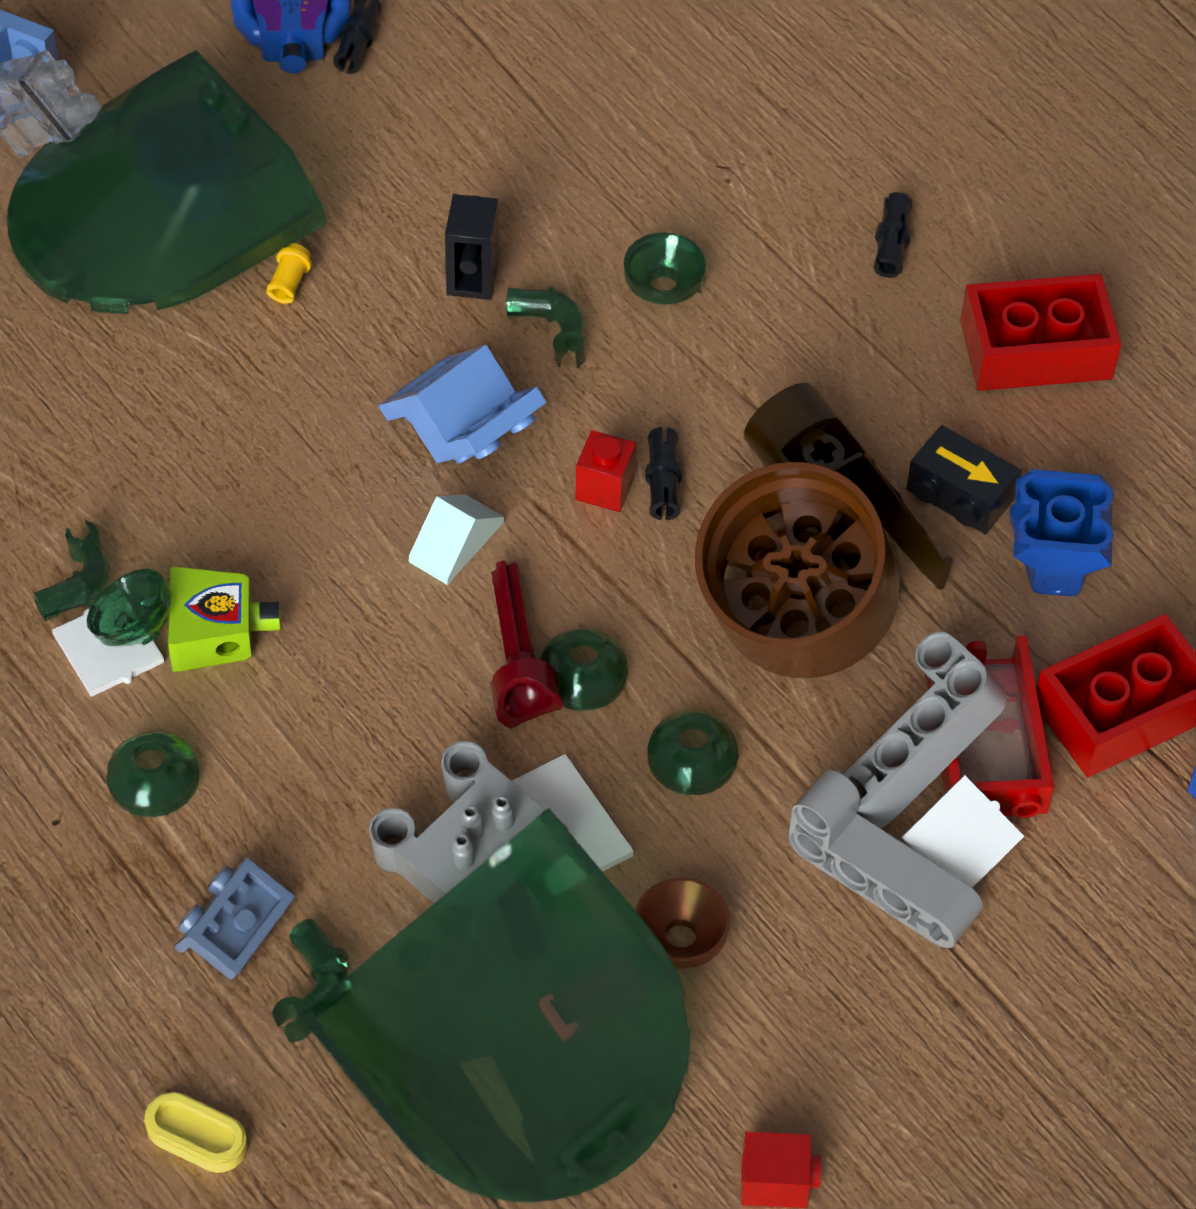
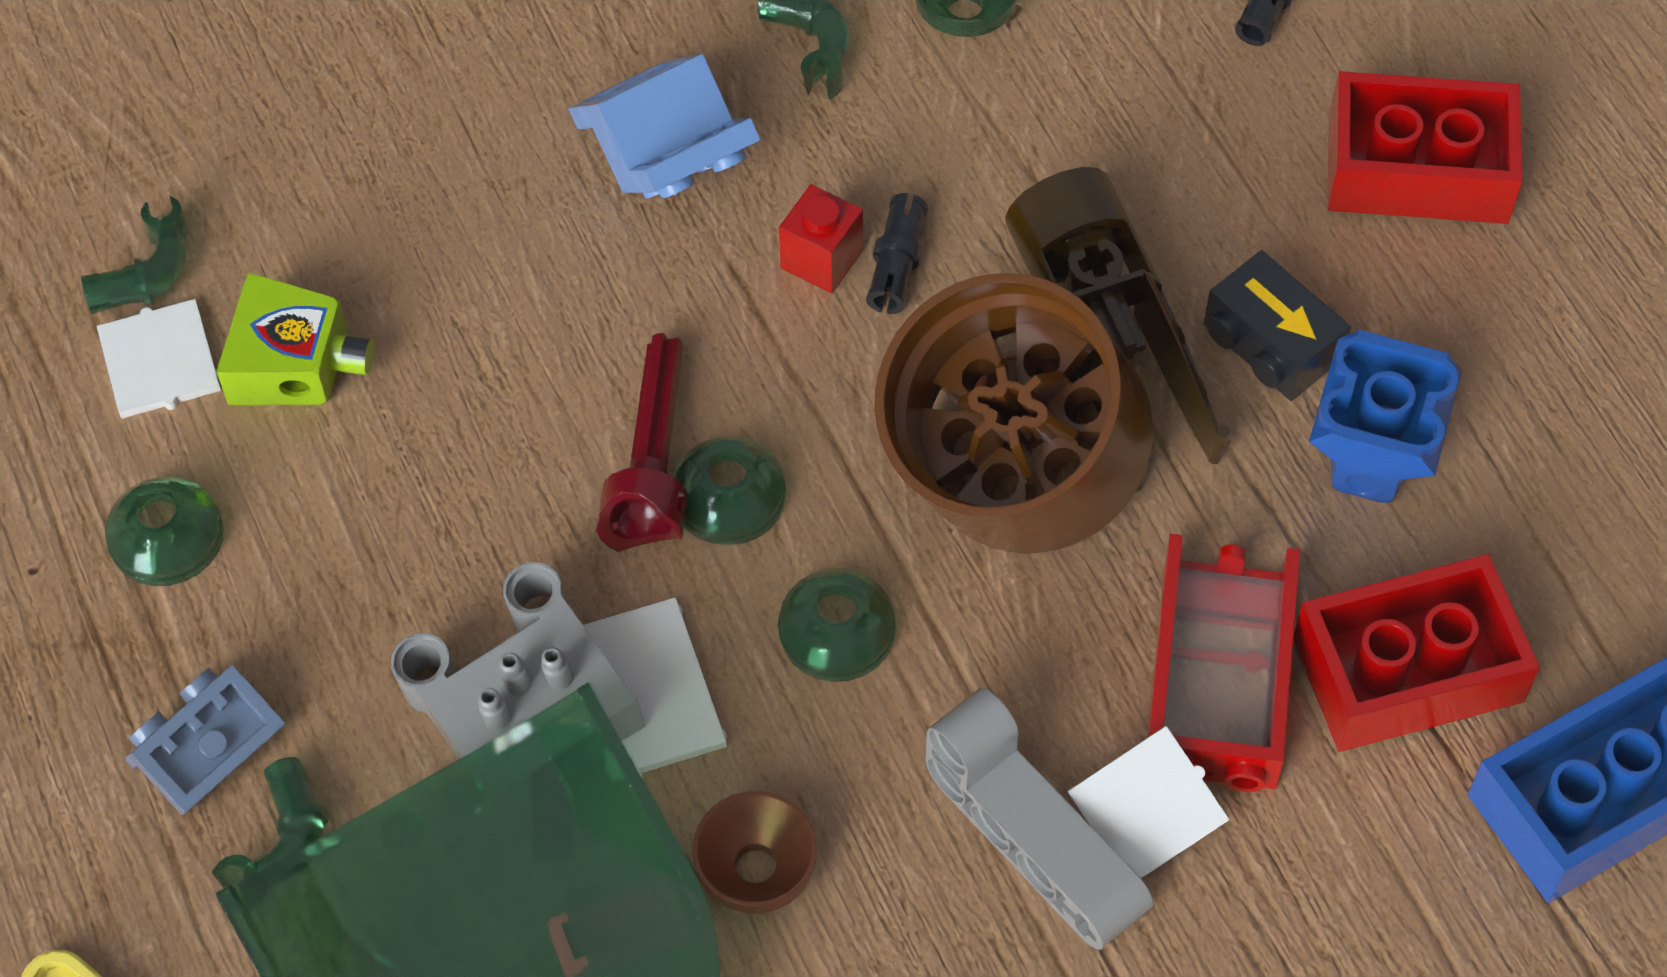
camera: 15 degrees right, 5 degrees up
(130, 609) = (185, 320): clear green piece -> none
(453, 535) = (614, 287): light aqua slope -> none
(930, 732) = (1135, 660): light grey beam -> none

